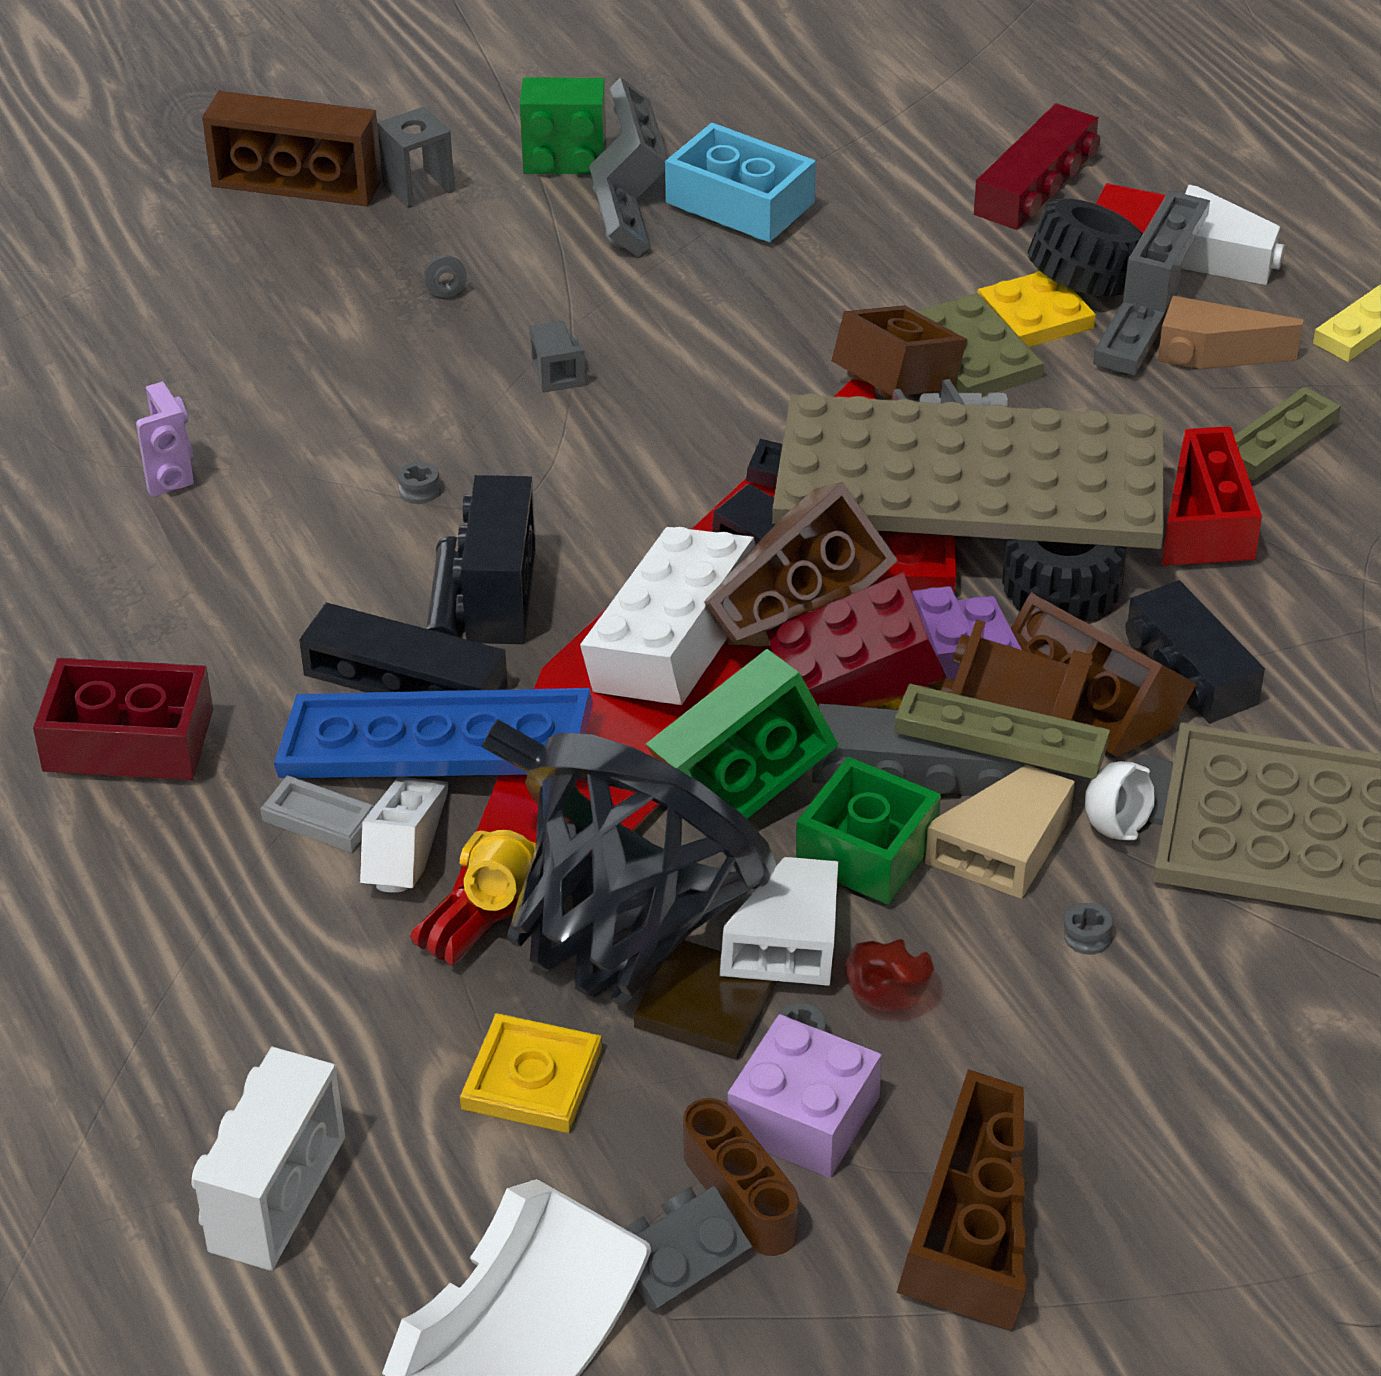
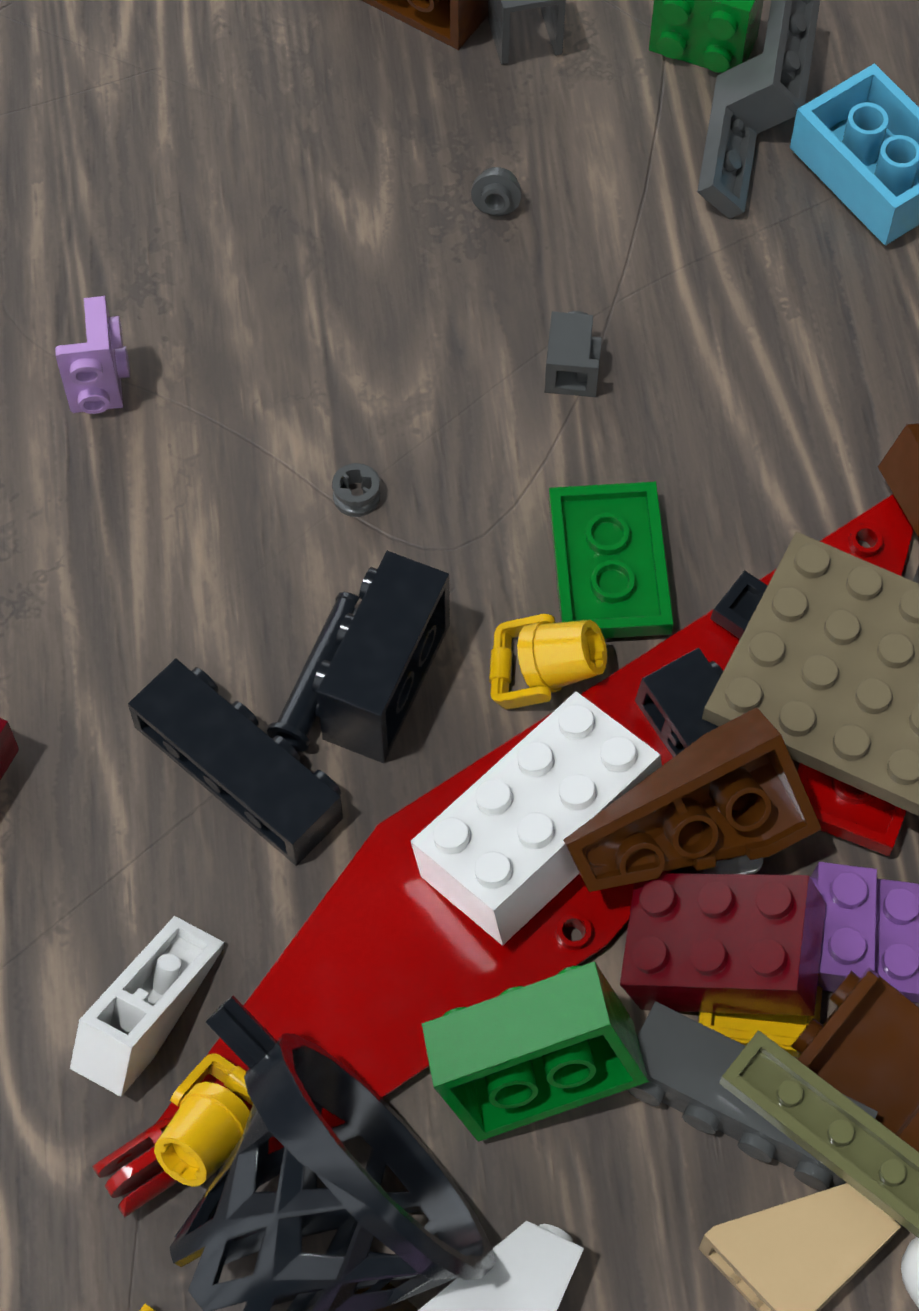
camera: 20 degrees right, 20 degrees up
(316, 813) = (73, 939): light grey tile -> none
(419, 731) = (226, 888): blue plate -> none
(632, 528) = (548, 657): none -> yellow piece
(648, 471) = (611, 558): none -> green plate
(870, 826) = (639, 1204): green brick -> none

